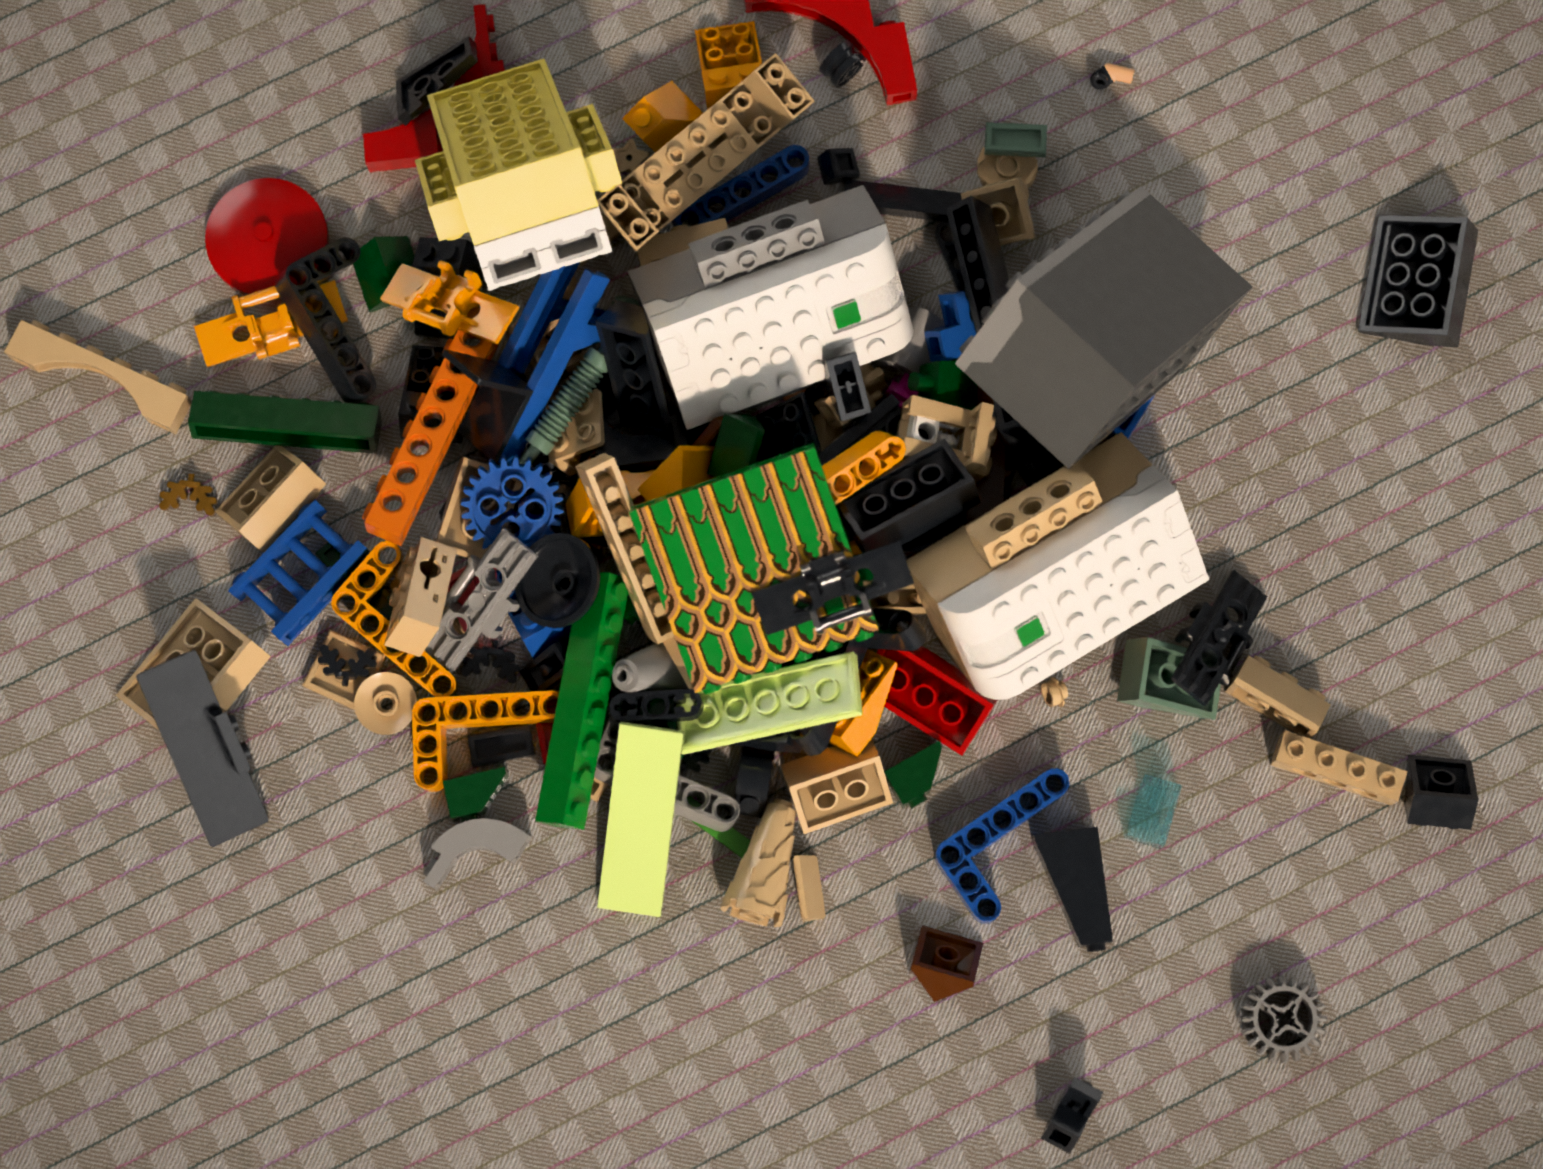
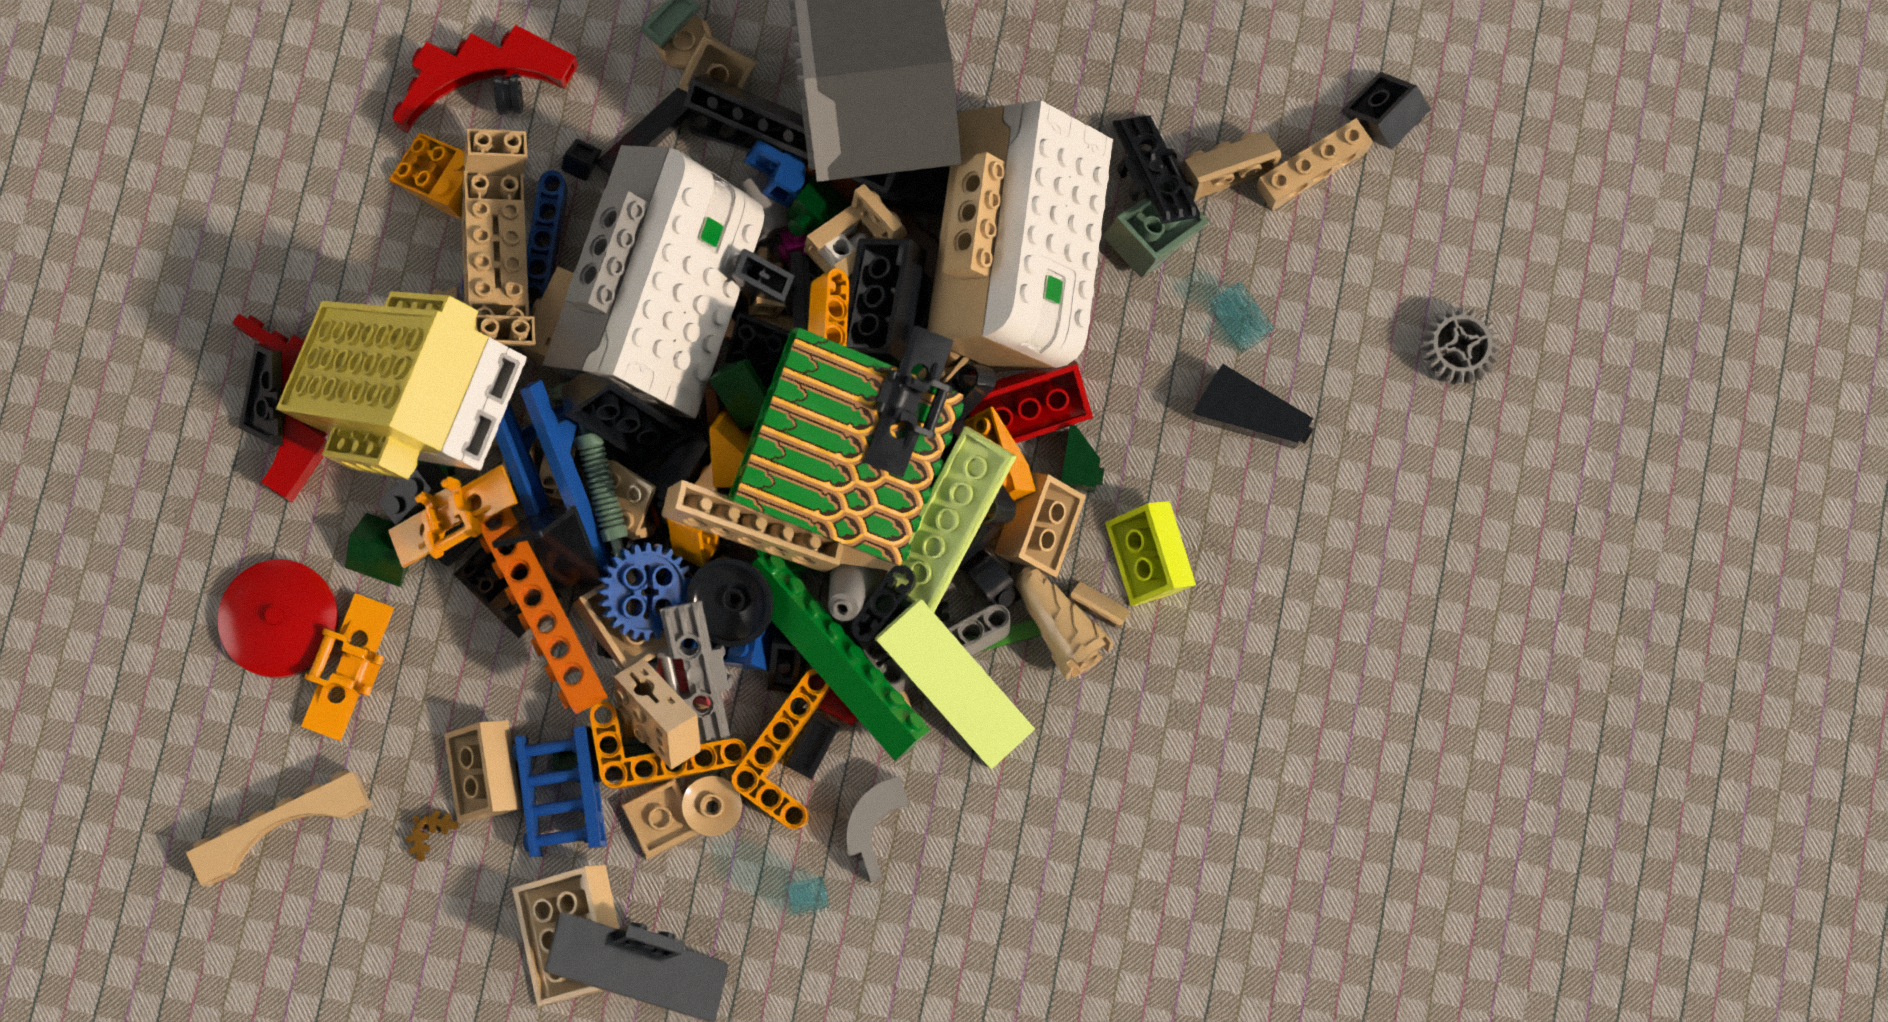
camera: 55 degrees left, 0 degrees up
(285, 421) = (434, 714): dark green brick -> none
(325, 317) = (379, 621): black beam -> none
(357, 669) = (655, 822): black animal -> none
(370, 841) = (808, 897): none -> clear light blue panel
(473, 793) = (833, 795): dark green slope -> none
(502, 659) = (748, 694): black animal -> none
(662, 115) = (438, 253): light orange slope -> none
(886, 895) = (1150, 553): none -> neon yellow slope
(945, 962) = (1232, 549): reddish brown slope -> none
(992, 834) = (1166, 443): blue beam -> none
(1054, 692) = (1100, 317): tan plate -> none
(1071, 1114) = (1411, 547): black brick -> none

